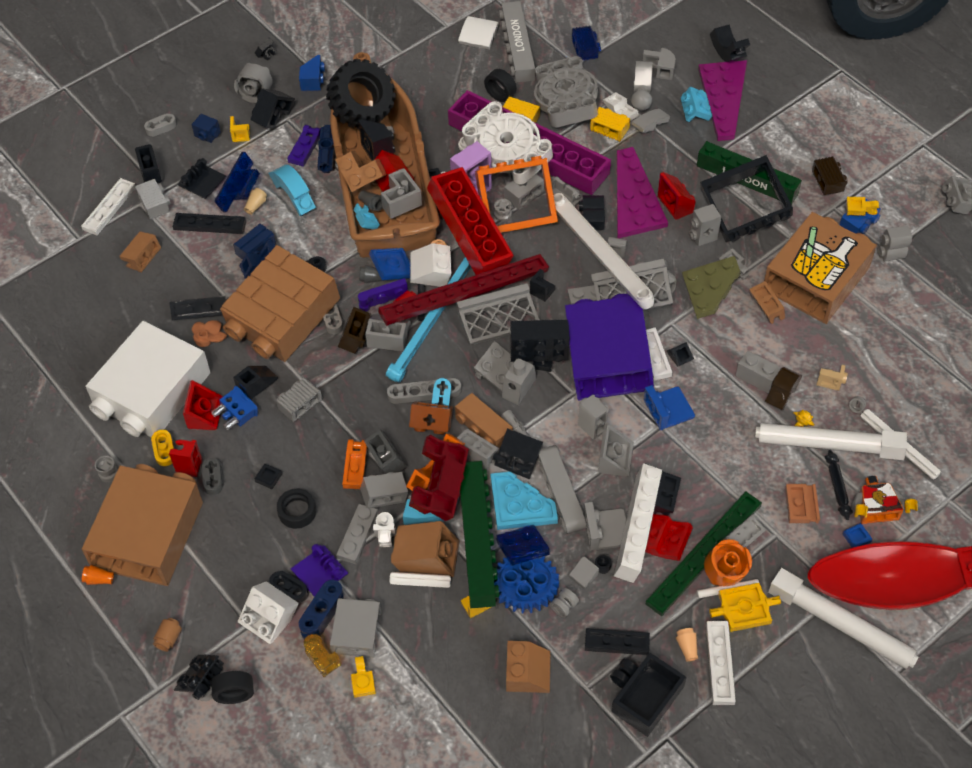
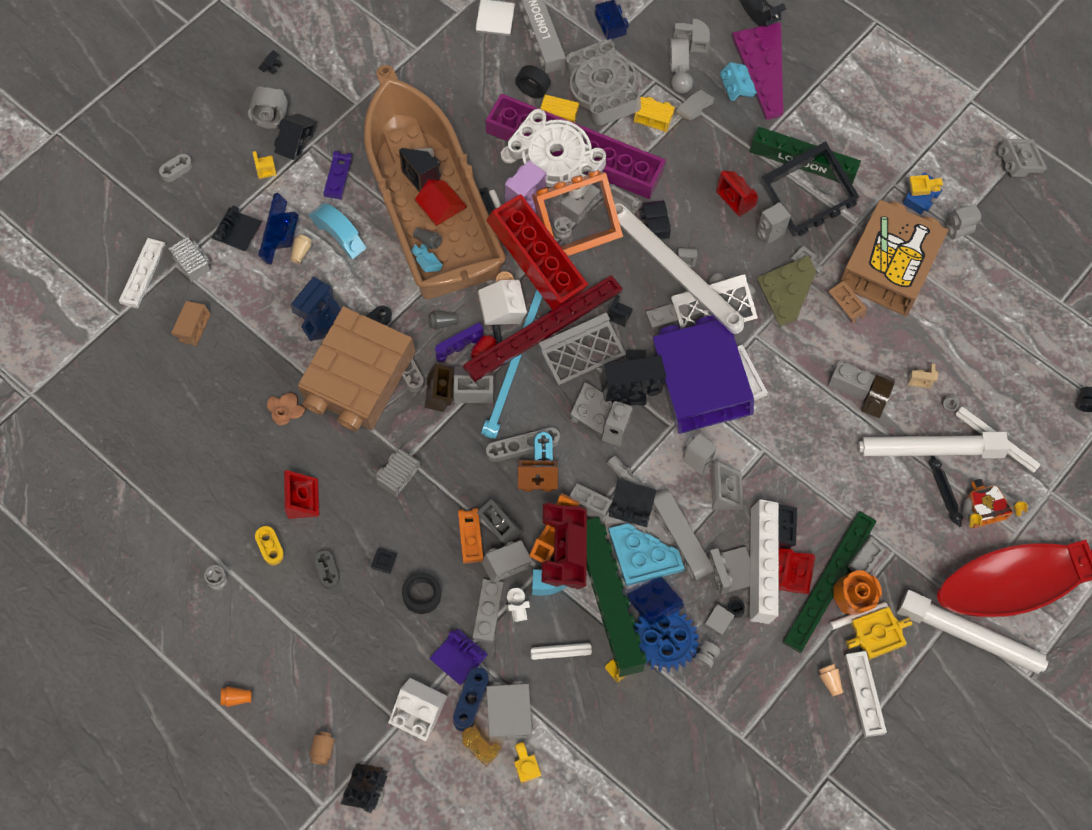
camera: 15 degrees left, 10 degrees up
(143, 524) = (271, 634): medium nougat brick -> none
(146, 380) = (236, 475): white brick -> none
(148, 163) = (176, 219): black brick -> none
(187, 459) = (300, 559): red hinge -> none
(196, 307) = (269, 381): black plate -> none
(206, 128) = (227, 167): dark blue brick -> none
(209, 223) = (256, 280): black tile -> none
(232, 687) = (402, 796): black tyre -> none
(236, 406) = (336, 483): blue piece -> none
(254, 380) = (347, 458): black slope -> none
(290, 586) = (433, 677): black plate -> none
(311, 74) = (327, 90): blue slope -> none
(326, 150) = (364, 185): dark blue piece -> none
(357, 174) = (409, 211): medium nougat brick -> none
(373, 79) = (410, 103): black tyre -> none
(391, 263) = (460, 305): blue tile -> none
(402, 195) = (461, 229): light grey brick -> none
(425, 549) = (560, 620): medium nougat slope -> none
(481, 420) = (589, 471): medium nougat brick -> none
(527, 667) = (683, 728): medium nougat slope -> none
(617, 641) = (763, 686): black tile -> none
(619, 105) = (659, 92): white slope -> none
(623, 673) = (777, 720): black wheel -> none
(636, 201) = (696, 200): magenta wing -> none
(648, 694) = (805, 739): black piece -> none
(668, 407) = (769, 430): blue bracket -> none
(680, 354) = (770, 369): black slope -> none
(802, 503) = (915, 516): nougat plate -> none
(803, 418) = (902, 426): yellow plant -> none
(829, 175) = (885, 149): dark brown brick -> none
(857, 536) = (971, 543): blue tile -> none

